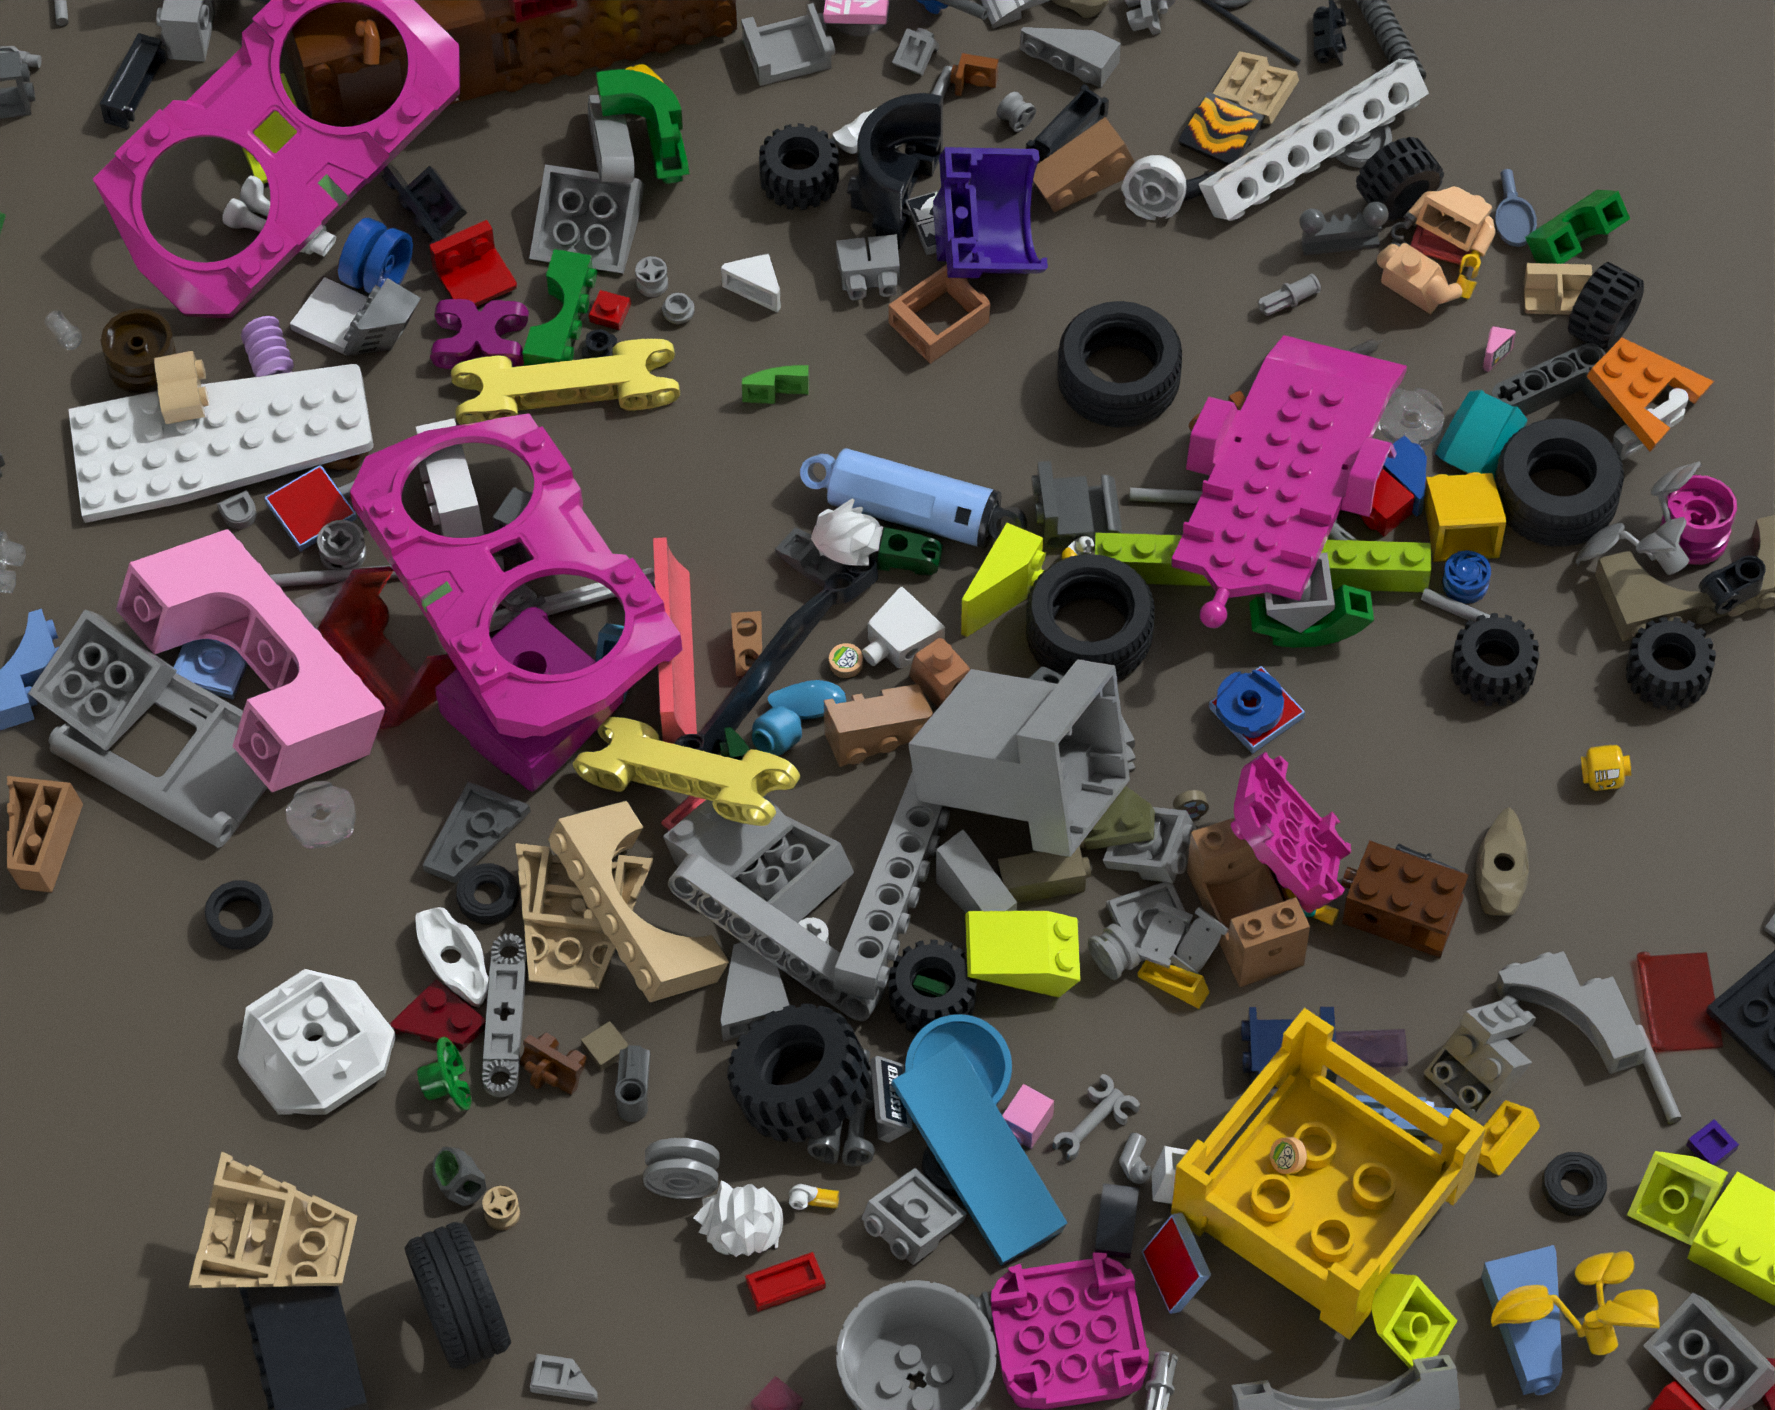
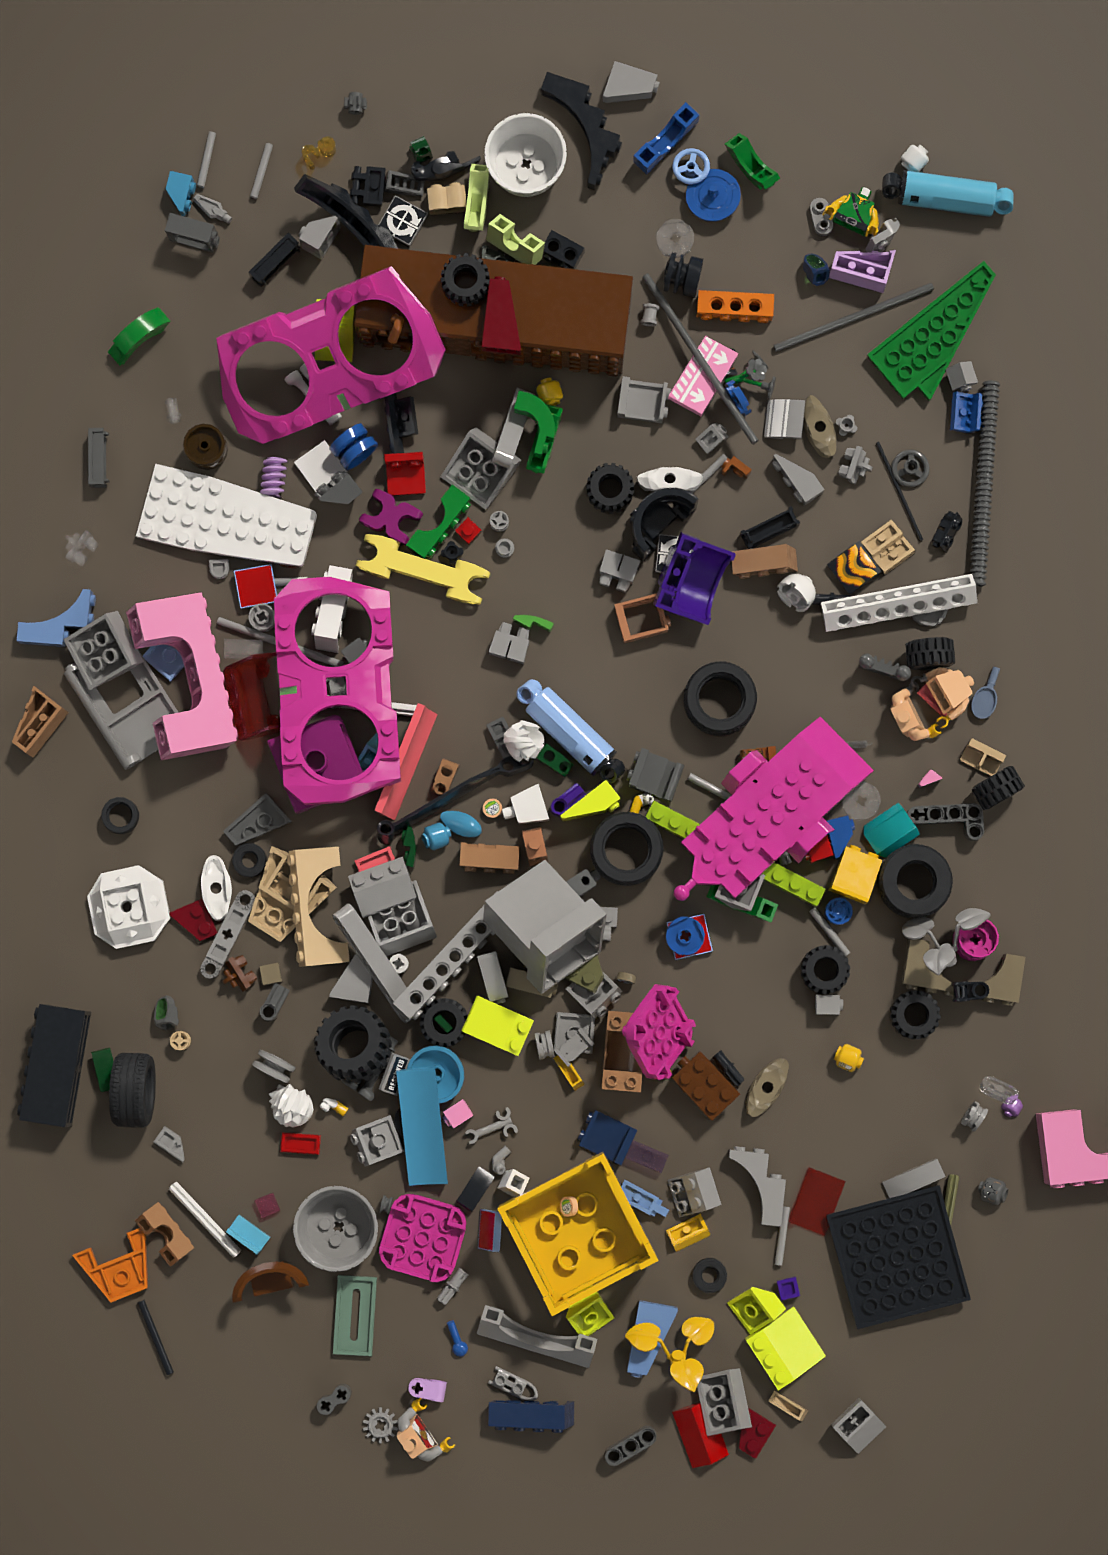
camera: 30 degrees right, 25 degrees up
(180, 387) = (215, 486): tan brick -> none
(269, 1234) = (51, 1022): tan wedge -> none
(324, 832) = (178, 767): clear plate -> none
(393, 1306) = (103, 1065): none -> dark green slope
(441, 1077) = (181, 957): green wheel -> none
(730, 783) = (394, 872): light yellow piece -> none
(754, 280) = (553, 549): white slope -> none
(766, 417) = (502, 640): none -> light grey hips
(952, 599) = (568, 799): none -> dark purple piece
(1016, 111) = (747, 504): light grey wheel -> none
(1199, 942) = (589, 1060): light grey piece -> none
(1289, 295) = (836, 692): light grey axle -> none
(1497, 1020) = (714, 1176): light grey plate -> none
(1527, 709) = (828, 1004): none -> light grey brick
(1593, 215) = (1027, 721): green arch -> none
(1634, 377) = (986, 839): orange wing -> none
(1669, 412) = (986, 864): white plate -> none

